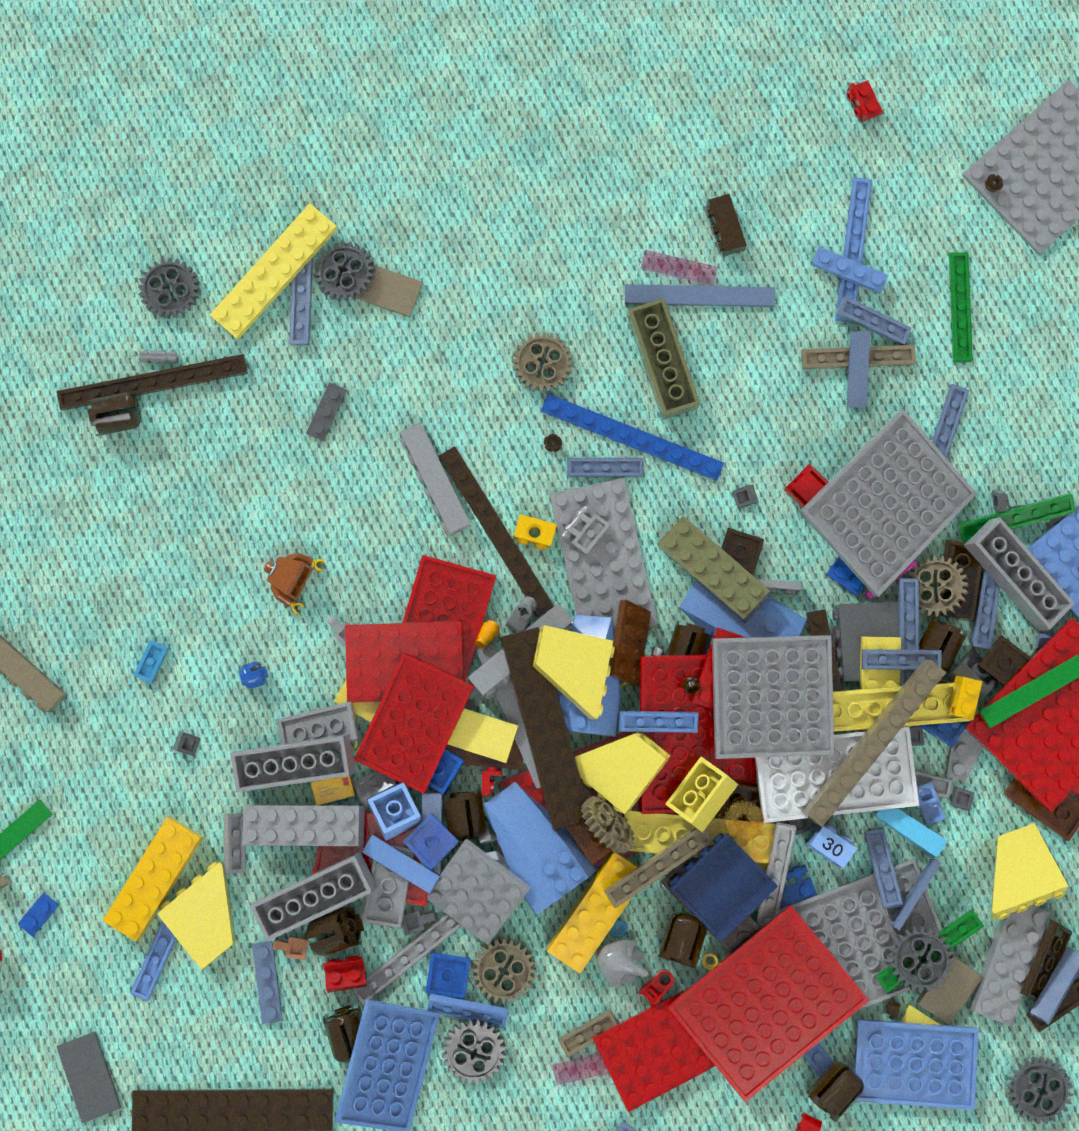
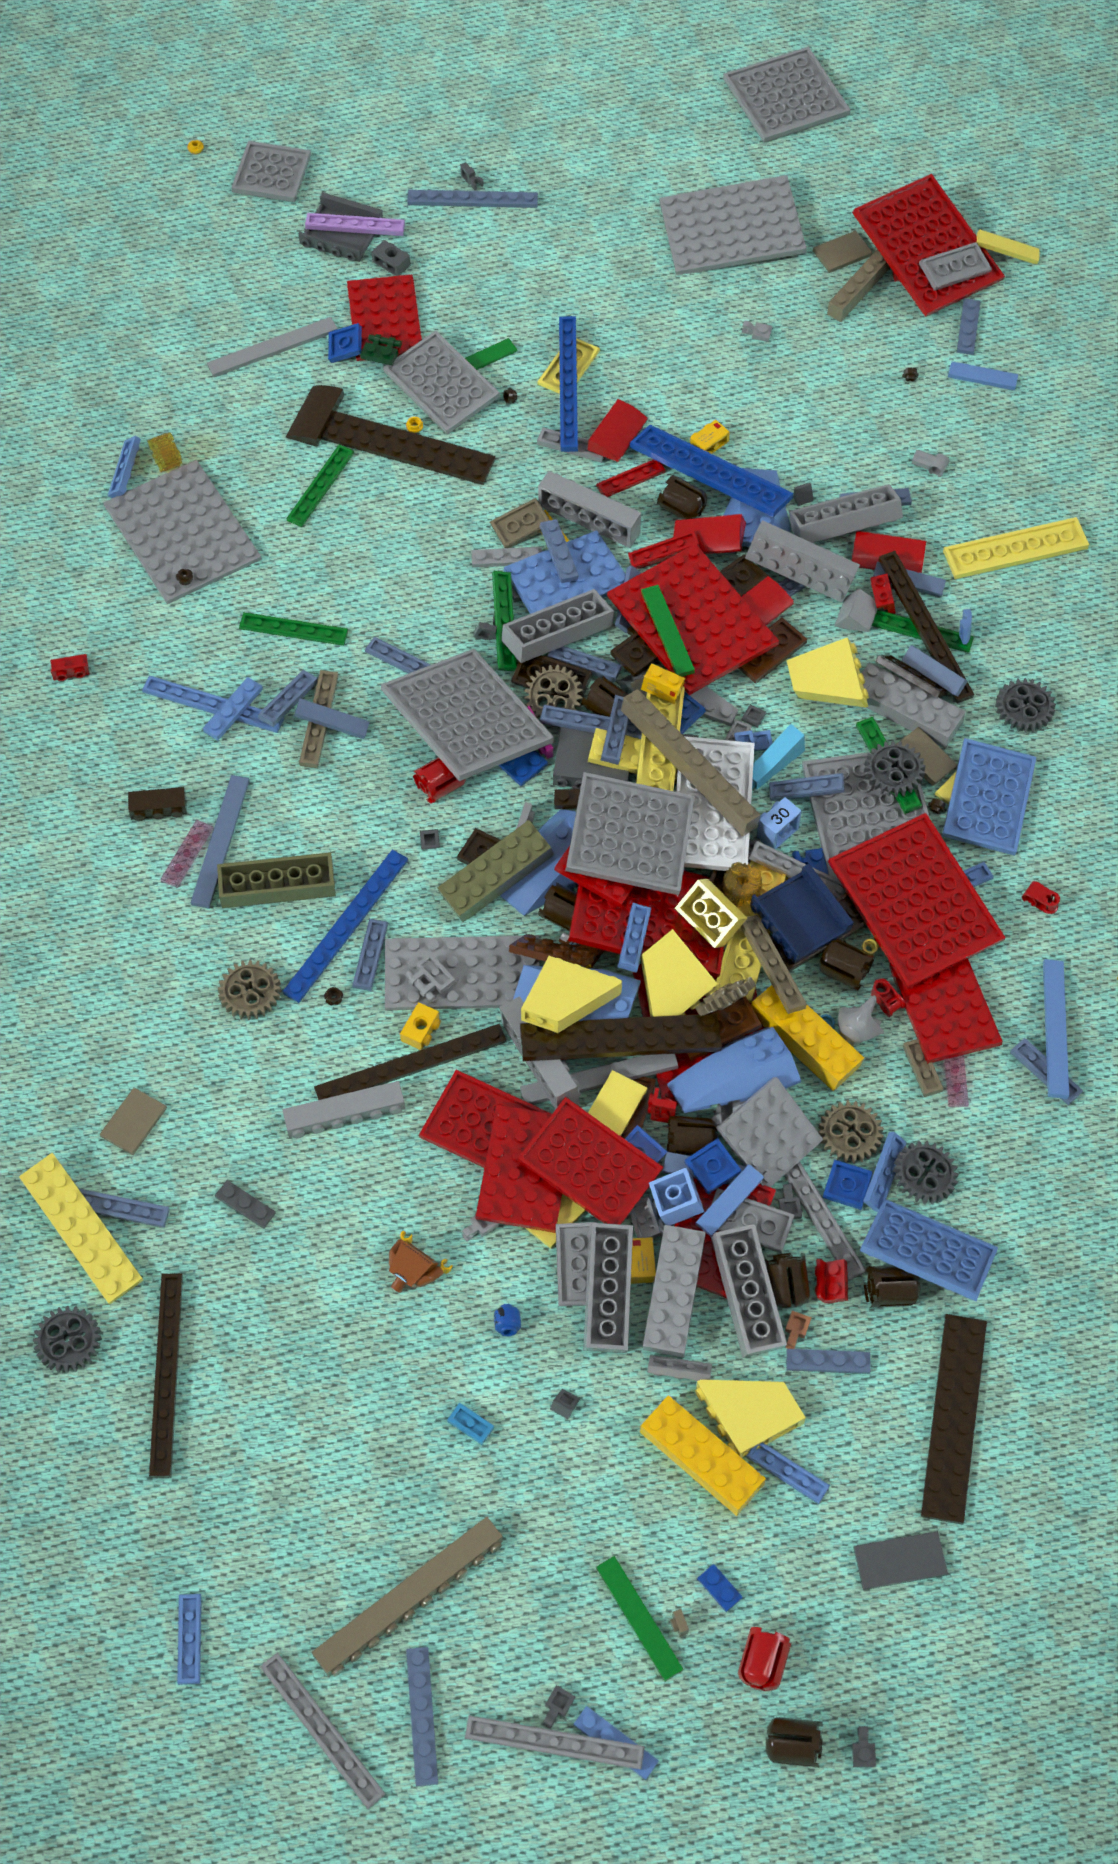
camera: 75 degrees left, 20 degrees down
(112, 404) = (181, 1413): dark brown cylinder -> none
(158, 356) = (139, 1364): light grey axle -> none
(359, 277) = (113, 1144): dark grey gear -> none
(487, 634) = (513, 1086): light orange cone -> none
(521, 616) = (504, 1053): light grey piece -> none
(691, 685) = (605, 900): dark brown plate -> none
(836, 1089) = (1004, 861): dark brown cylinder -> none
(915, 893) = (834, 764): sand blue tile -> none

